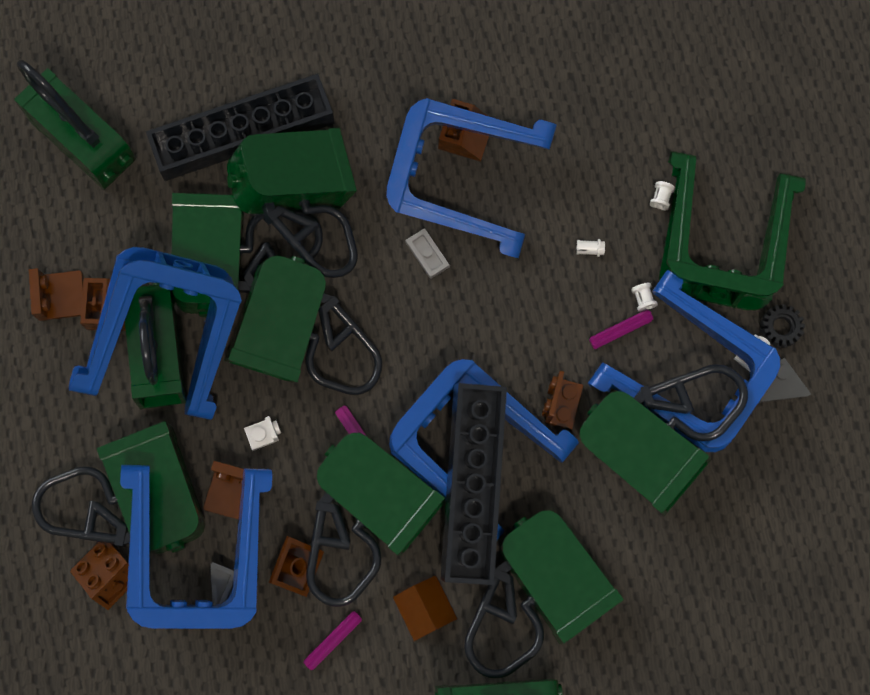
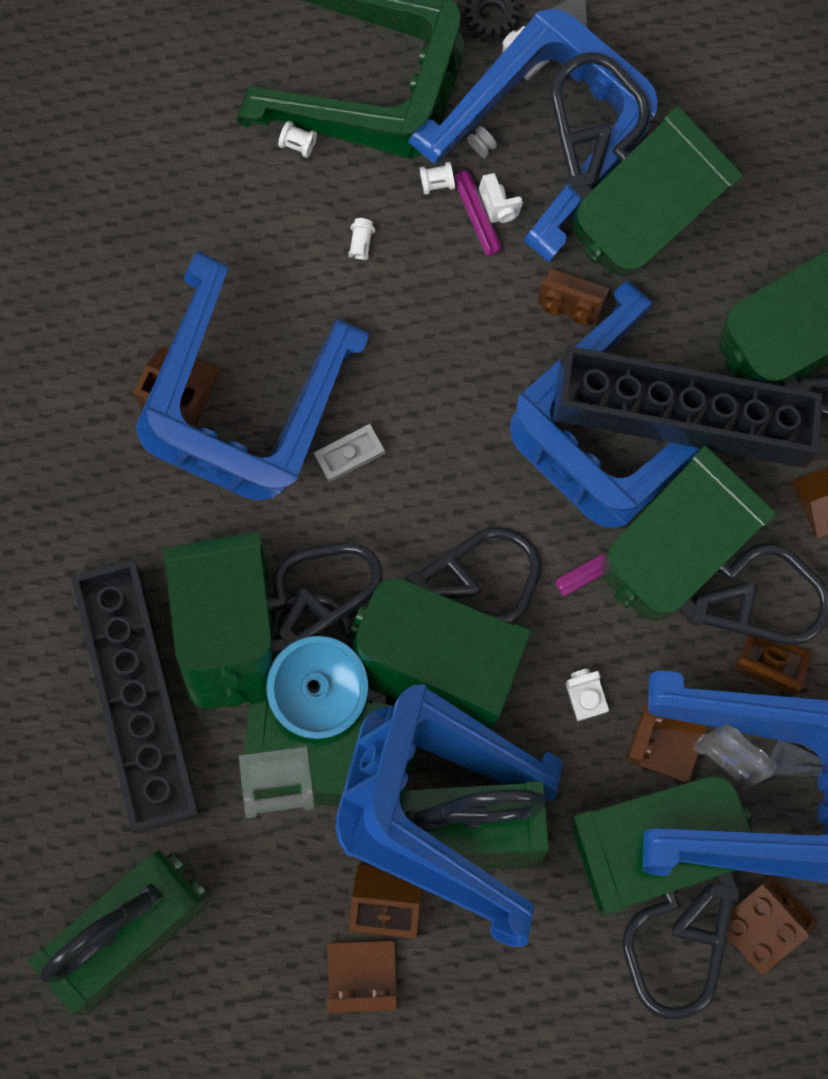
camera: 80 degrees left, 0 degrees up
(183, 214) = (272, 771): none -> clear plate
(225, 532) = (736, 756): none -> clear plate
(227, 232) = (340, 689): none -> dark azure dish
(633, 338) = (495, 200): none -> white bracket
(677, 326) = (482, 141): none -> light grey bush

